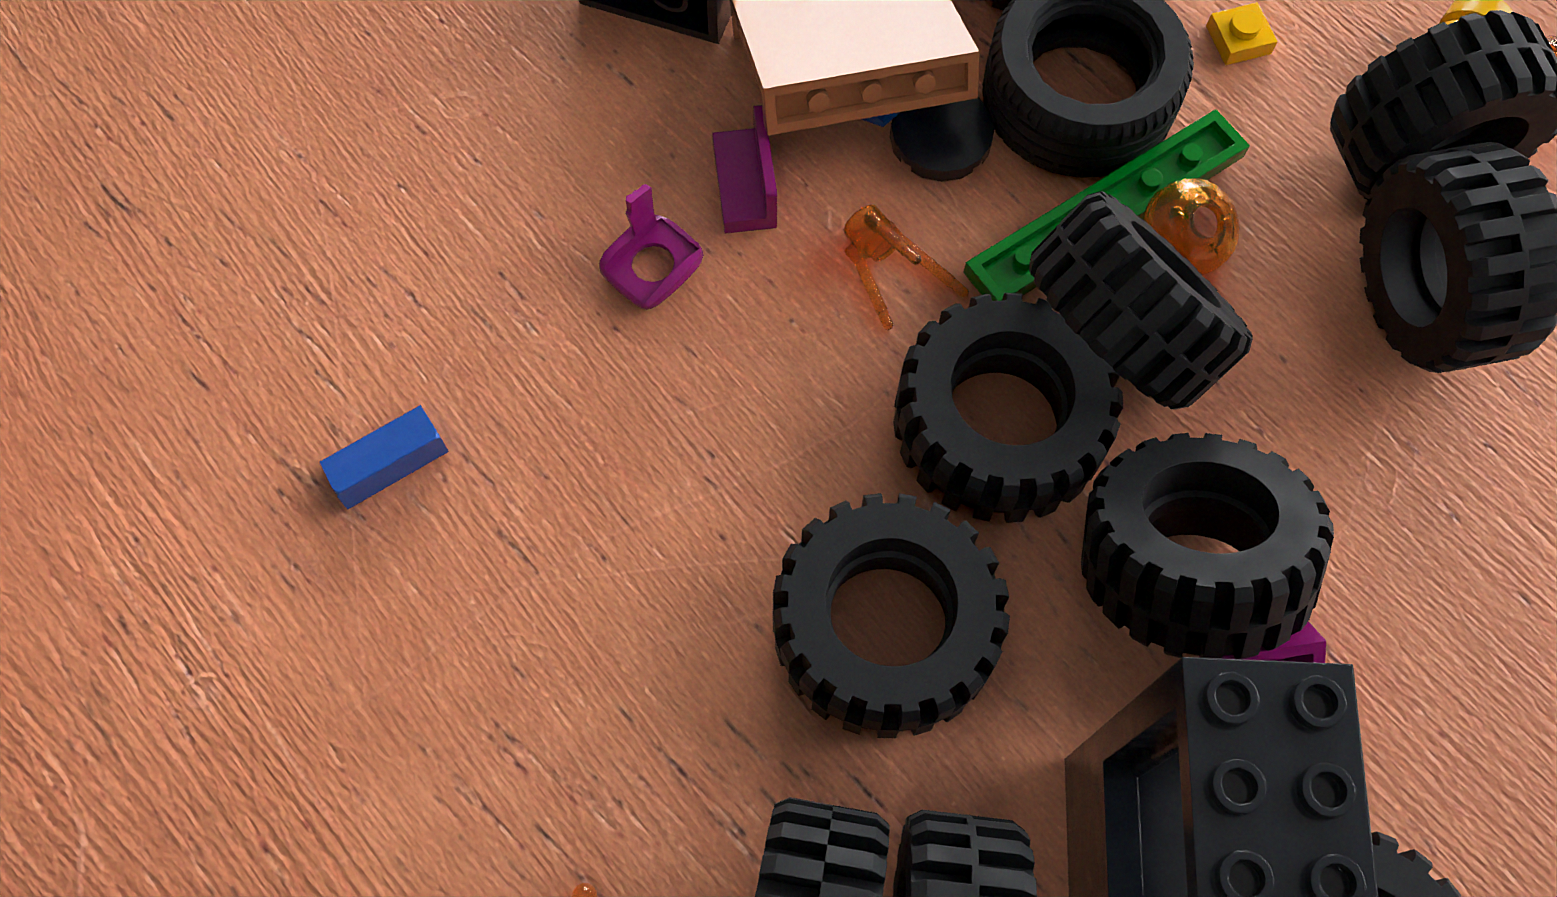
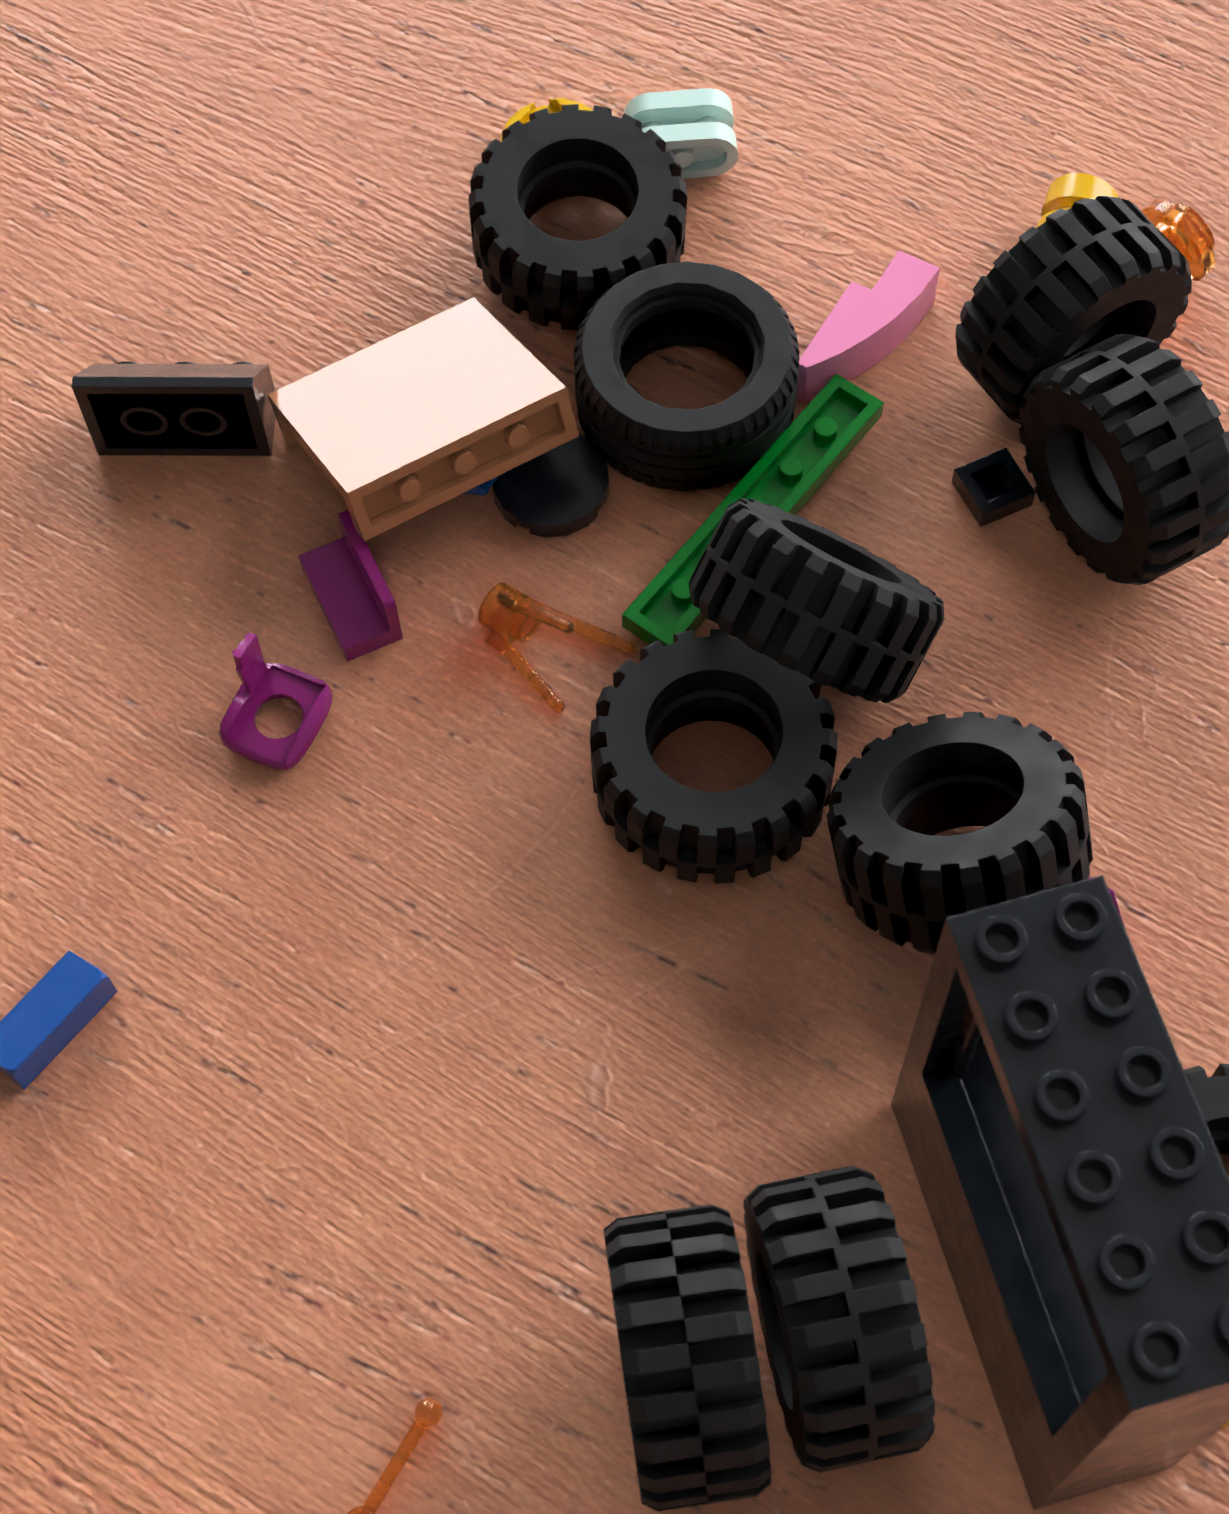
camera: 15 degrees left, 5 degrees down
(904, 541) = (658, 928): black tyre -> none
(1172, 217) = (825, 503): clear orange piece -> none
(1241, 33) = (831, 276): yellow plate -> none
(1258, 74) = (868, 324): none -> bright pink slope
(1322, 247) = (993, 487): none -> black tile

